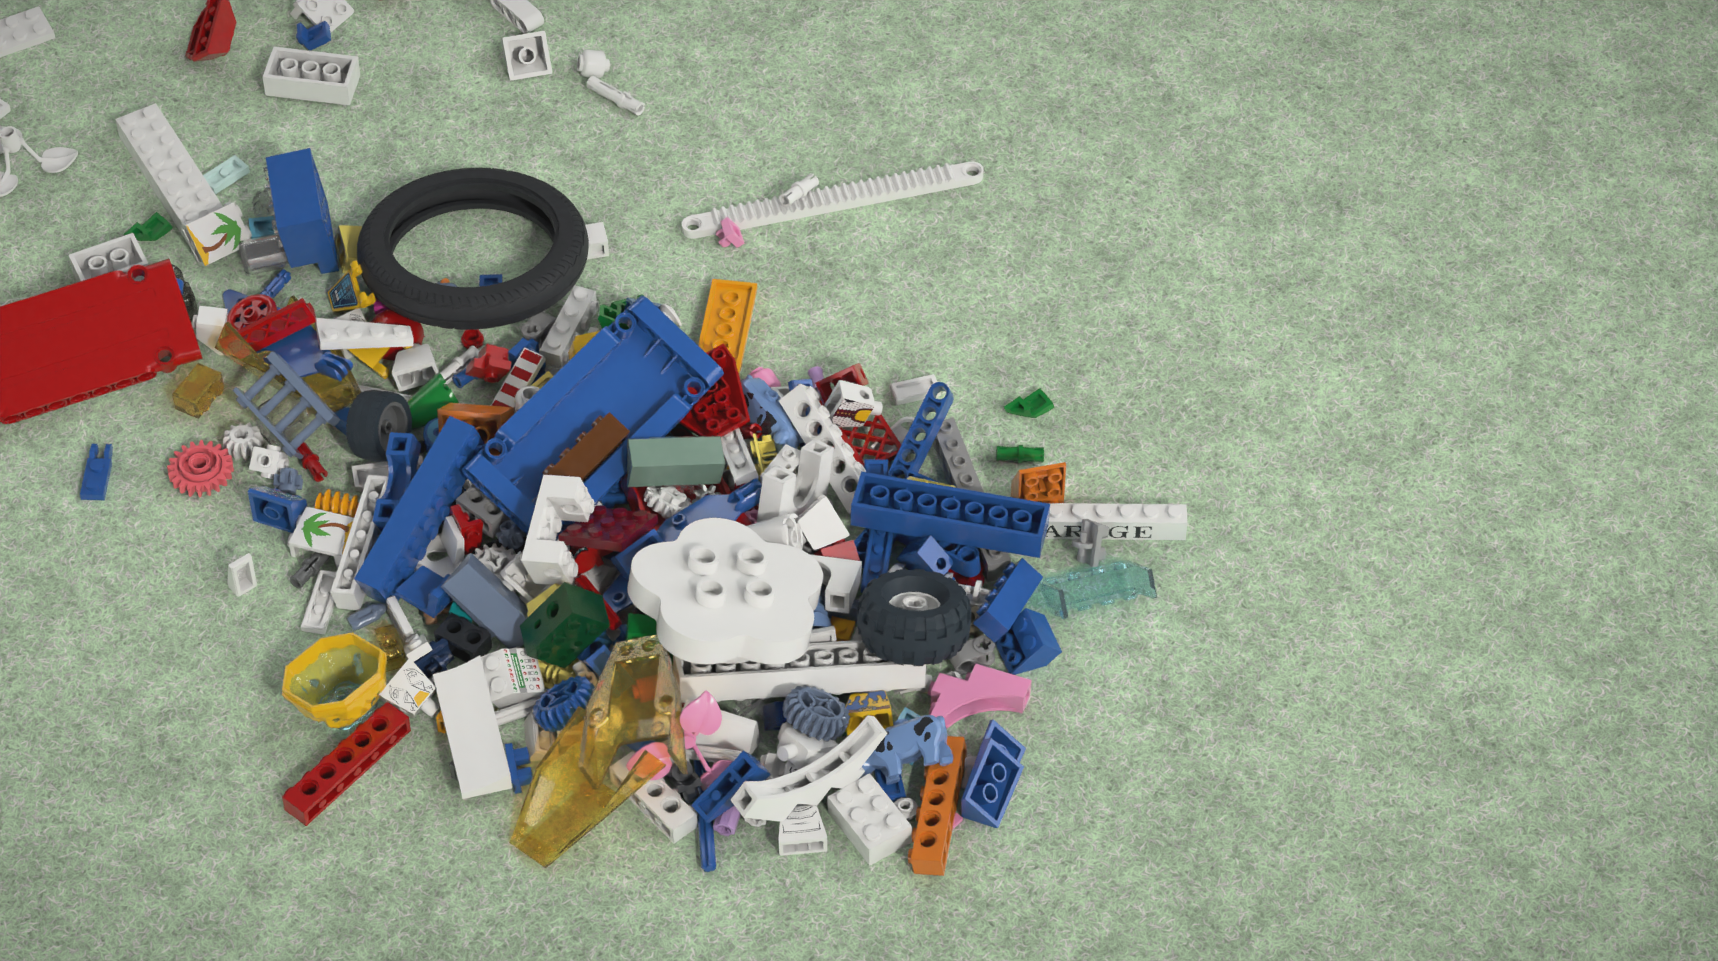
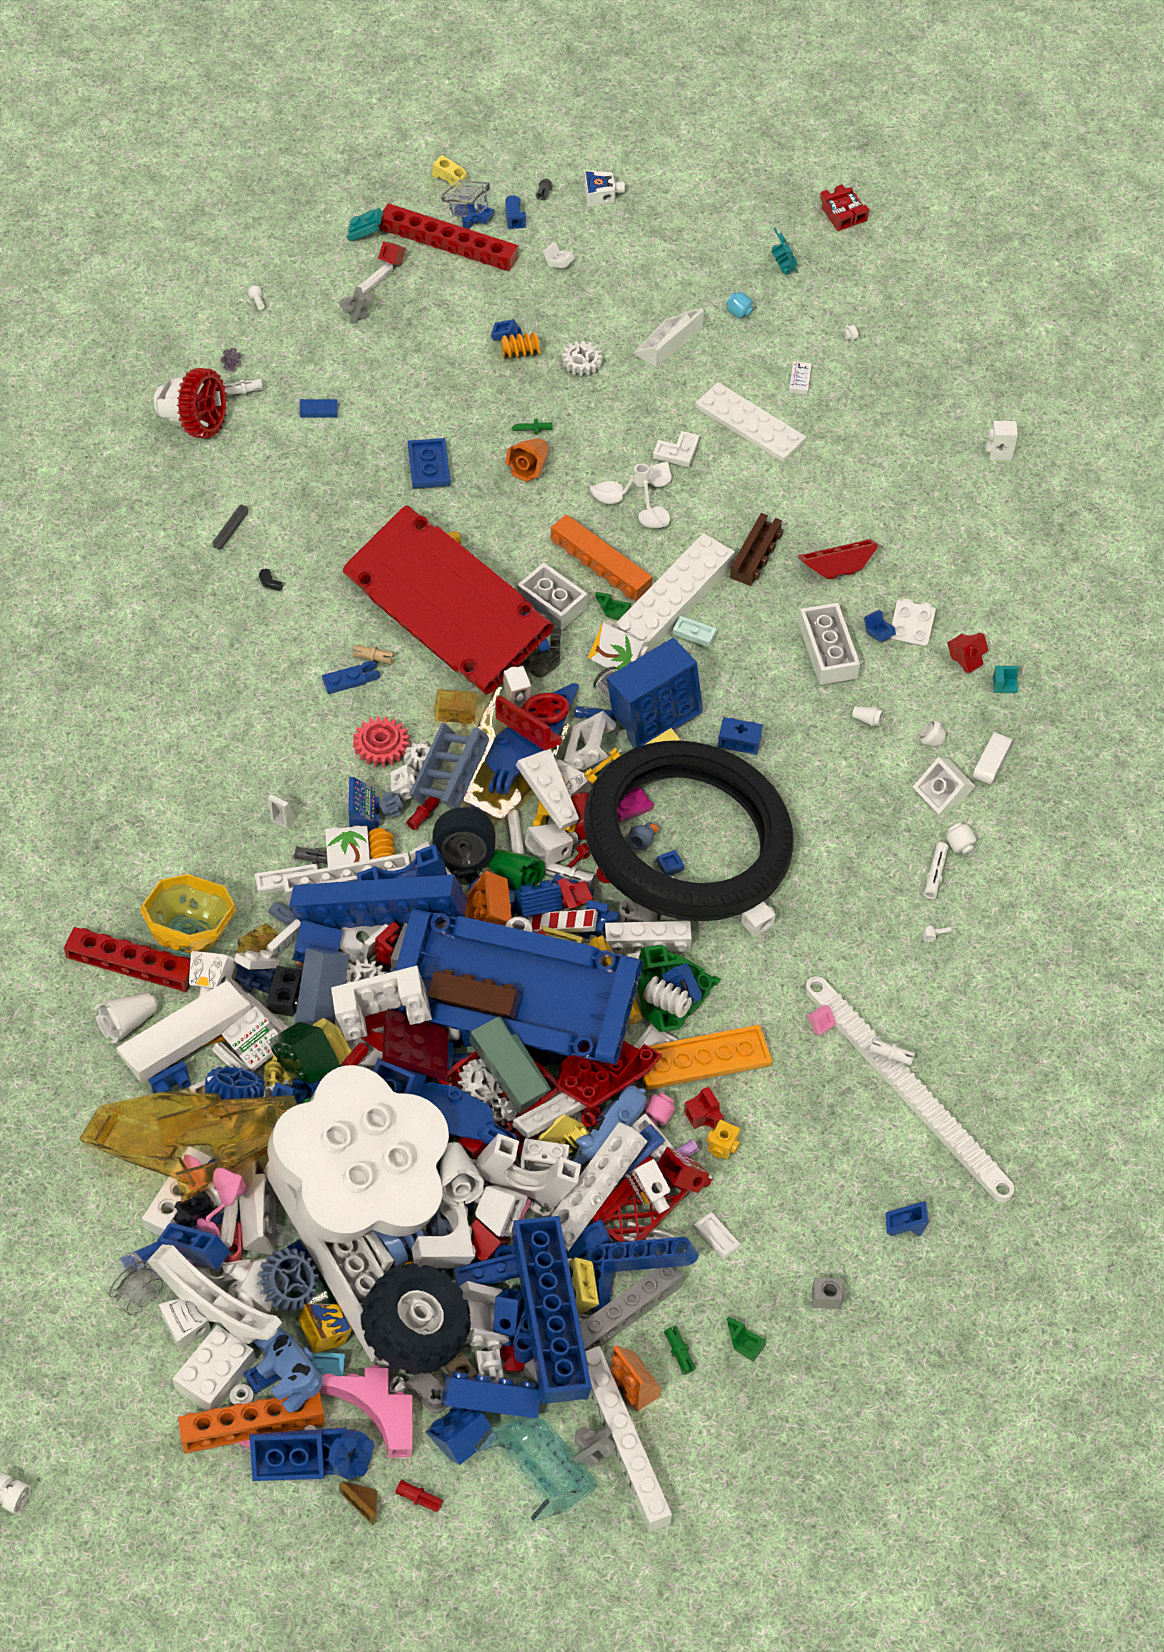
camera: 65 degrees right, 5 degrees up
(81, 442) = (373, 654): none -> tan pin
(82, 215) = (601, 558): none -> orange brick
(154, 88) = (756, 549): none -> reddish brown brick
(301, 283) = (589, 732): none -> white panel
(375, 181) = (740, 735): none -> blue brick
(411, 79) = (869, 715): none -> white cone
(418, 786) = (124, 1014): none -> white cone
(436, 349) = (584, 853): none -> red hand
(463, 41) = (932, 734): none -> white cone
(480, 388) = (538, 899): none -> blue brick
(681, 124) = (930, 933): none -> white hand
(751, 855) = (132, 1283): none -> clear wheel
(784, 349) = (703, 1109): none -> red brick
(822, 345) = (723, 1140): none -> yellow brick
(972, 242) = (908, 1218): none -> blue slope
(1014, 730) = (354, 1442): none -> blue plate
(1016, 328) = (821, 1300): none -> light grey brick
(1062, 742) = (362, 1498): none -> pearl gold slope
(1075, 697) = (418, 1496): none -> red axle

